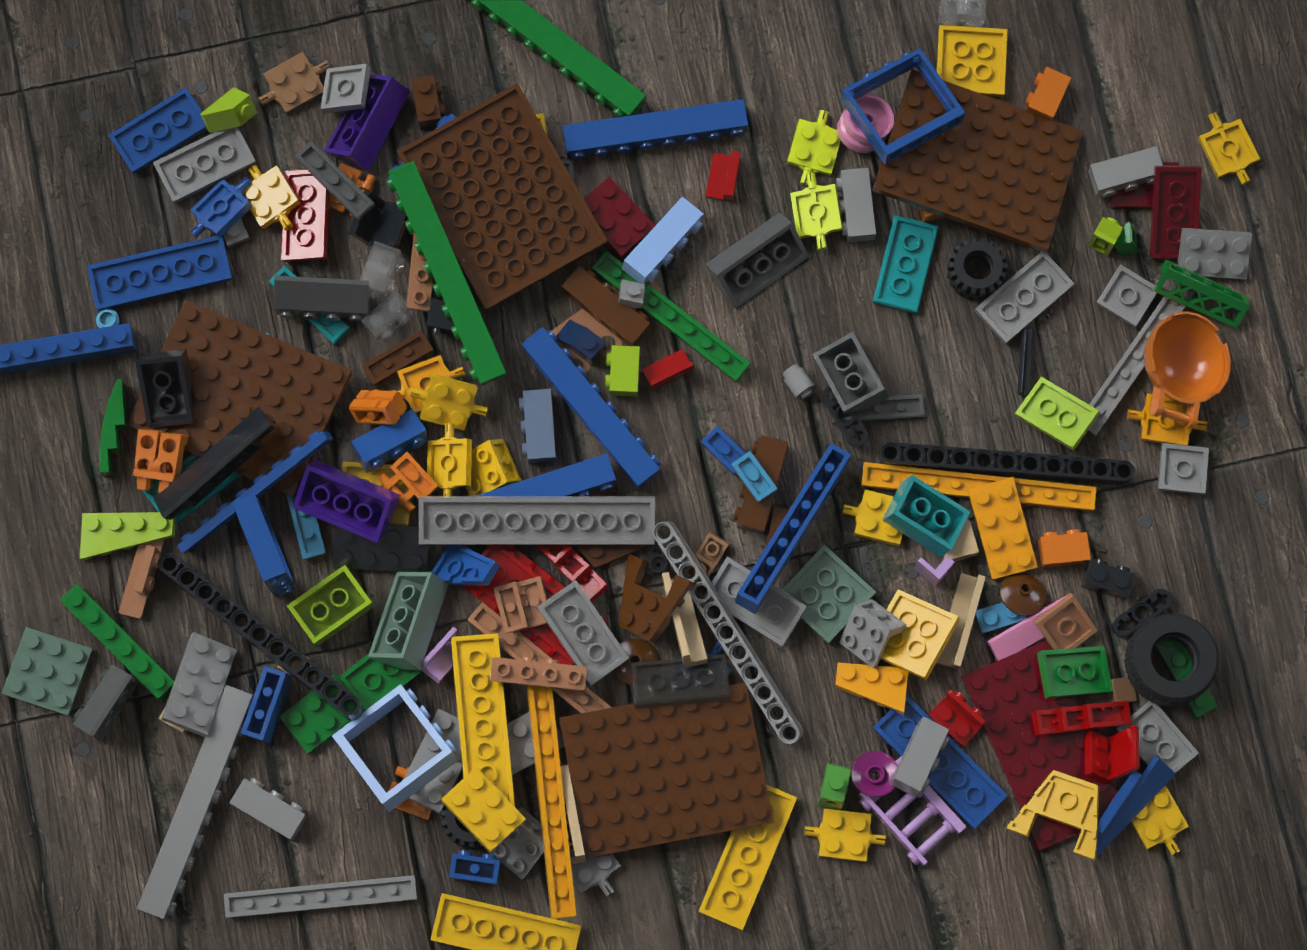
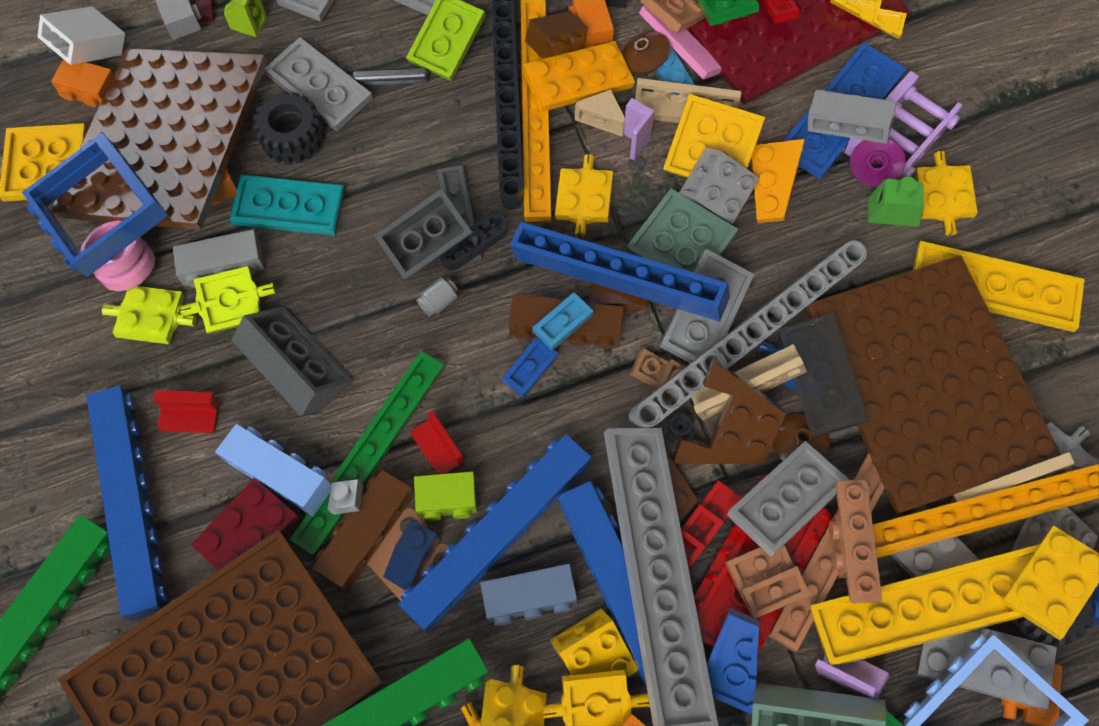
camera: 95 degrees left, 10 degrees down
(926, 516) = (579, 141): teal brick -> none
(957, 717) = (791, 95): red bracket -> none
(1040, 510) = (556, 34): none -> reddish brown brick
(1091, 92) = (81, 35): none -> white brick

